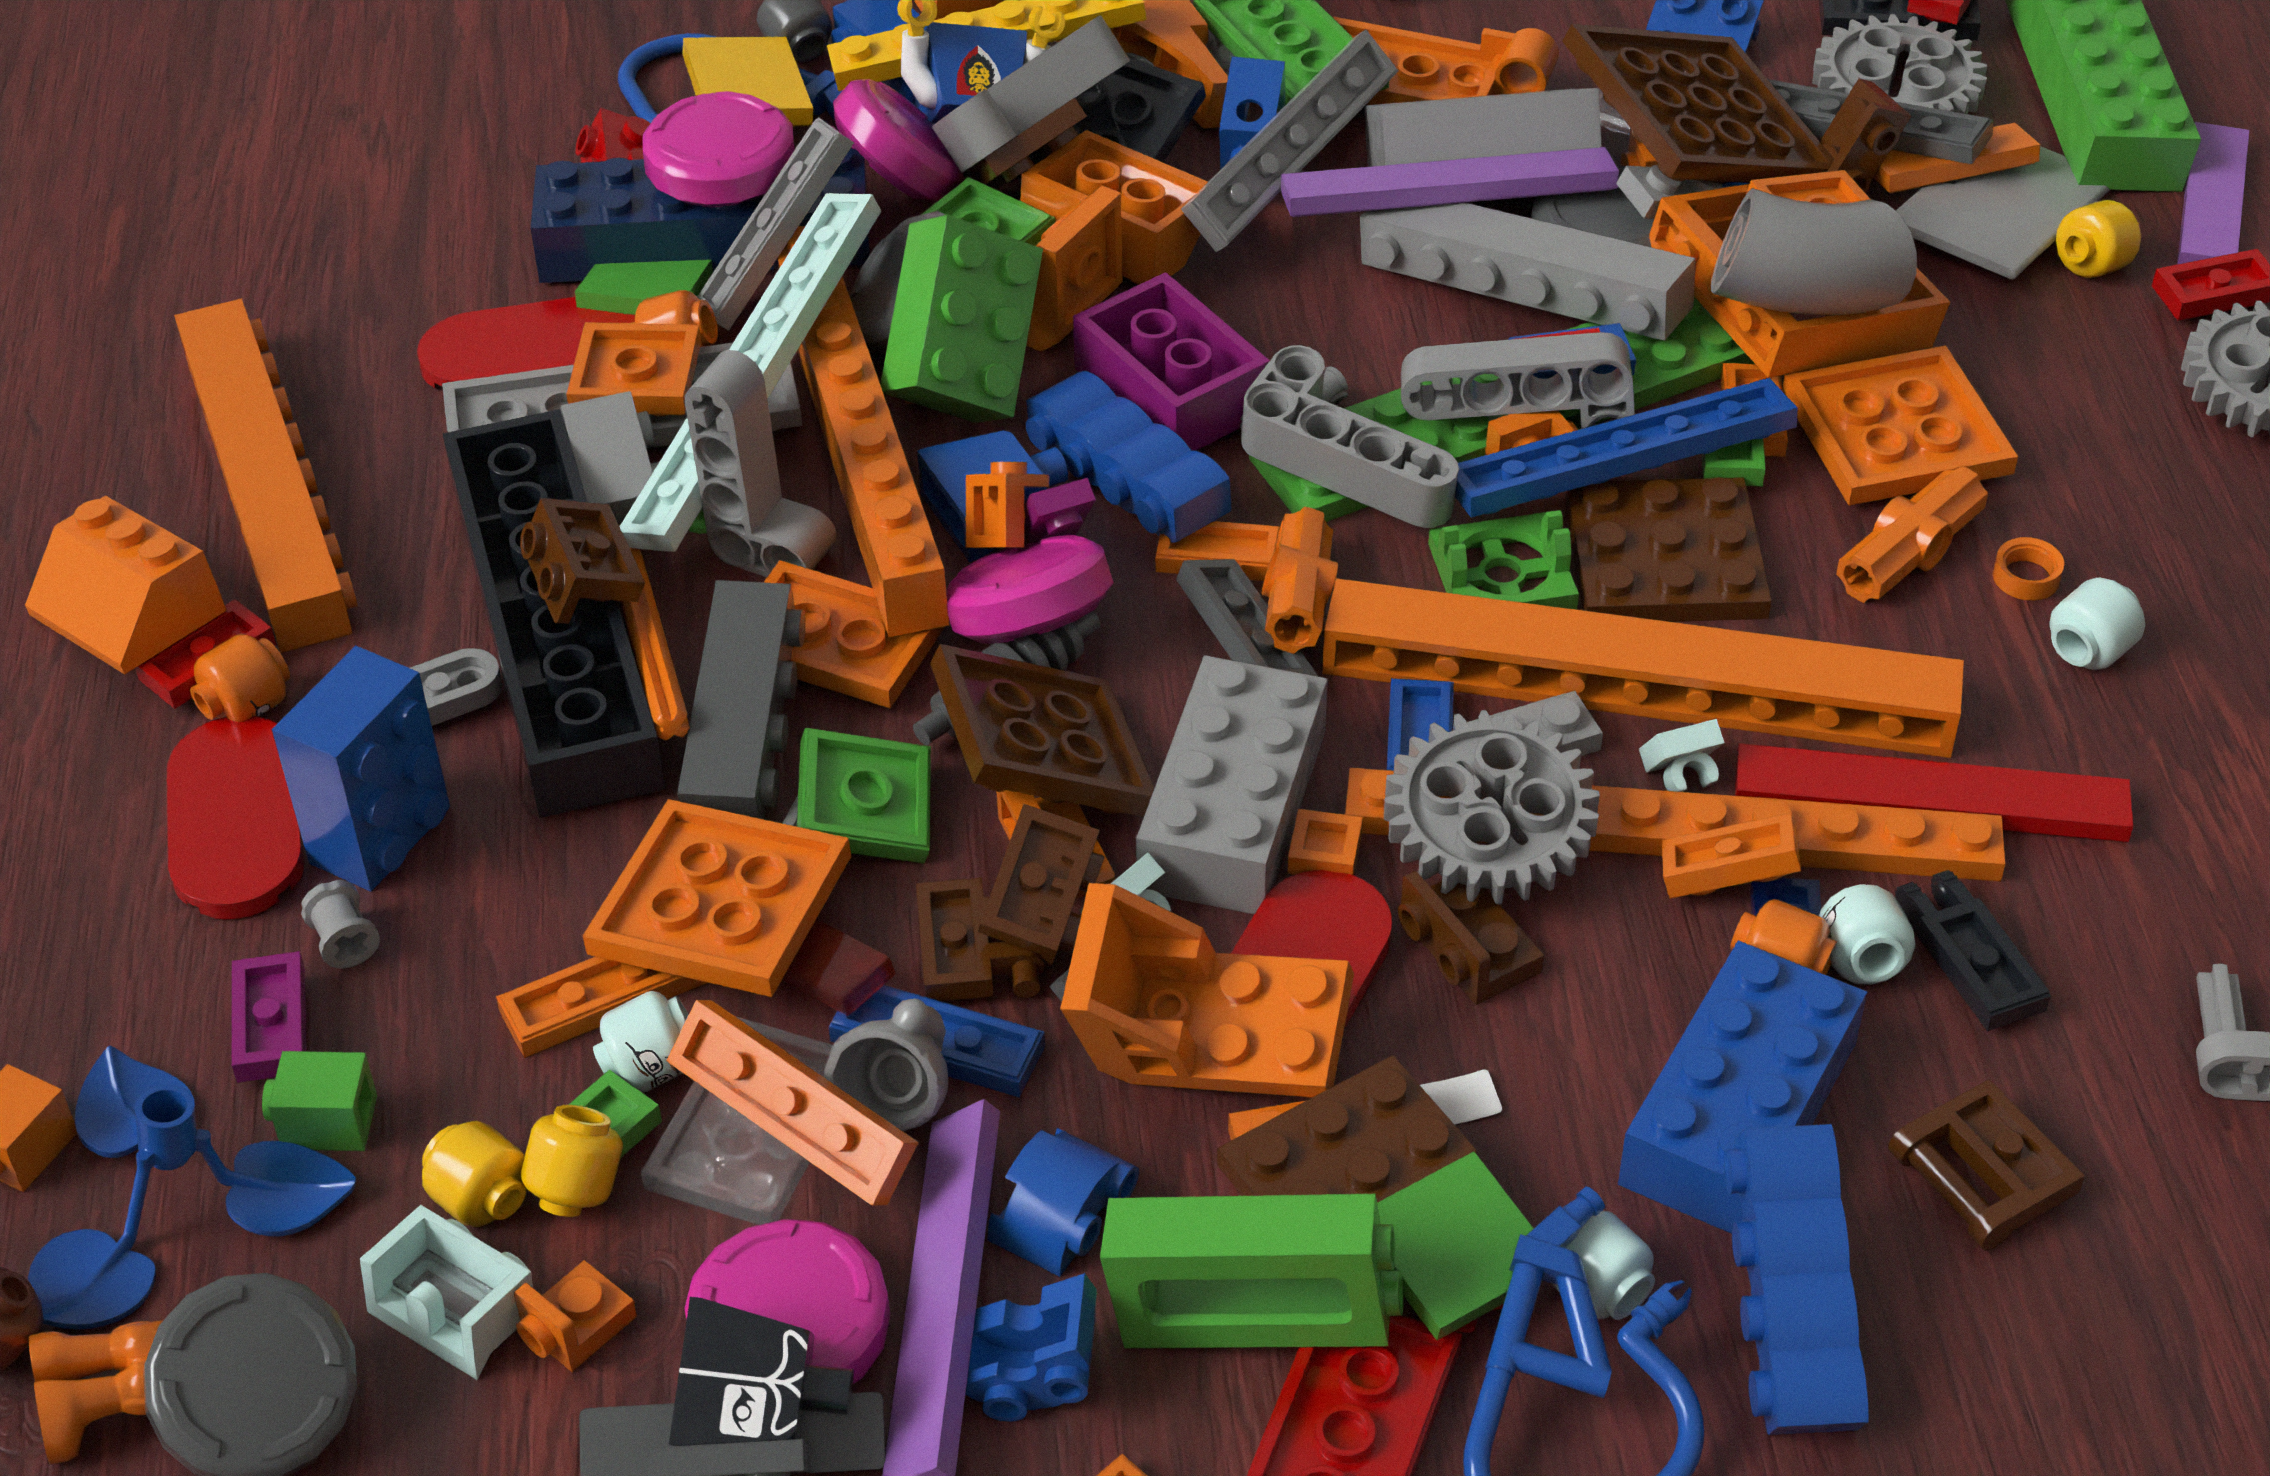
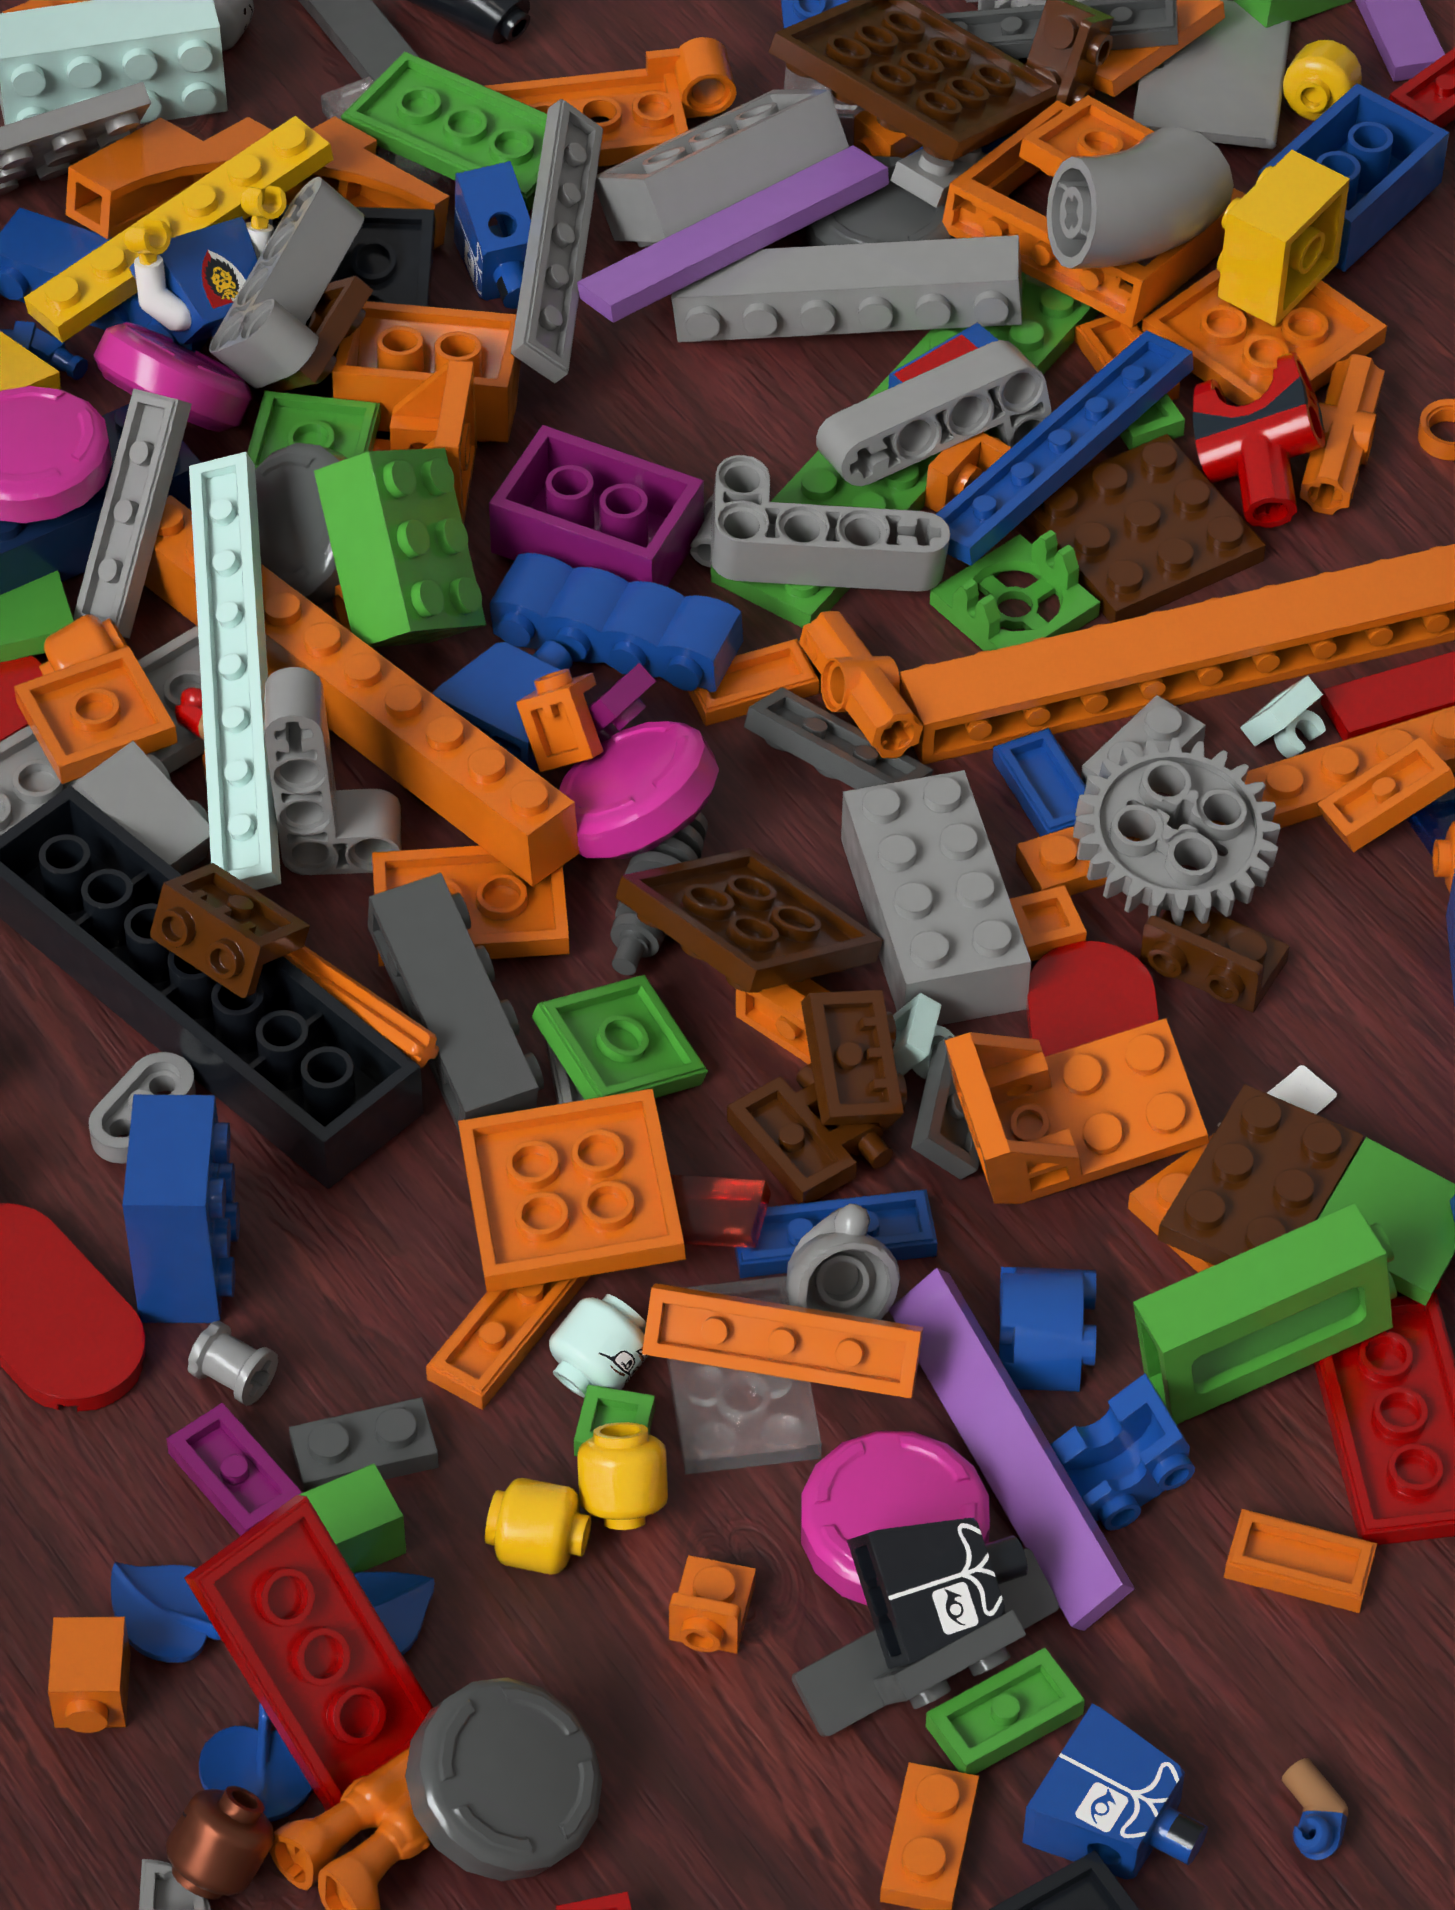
camera: 30 degrees left, 5 degrees up
(159, 1173) = (312, 1648): none -> red tile
(400, 1041) = (390, 1436): none -> dark grey plate
(444, 1288) = (596, 1633): light aqua window -> none
(1815, 504) = (1260, 439): none -> red connector
(1947, 339) = (1282, 237): none -> yellow brick
(2066, 321) = (1384, 152): none -> blue brick

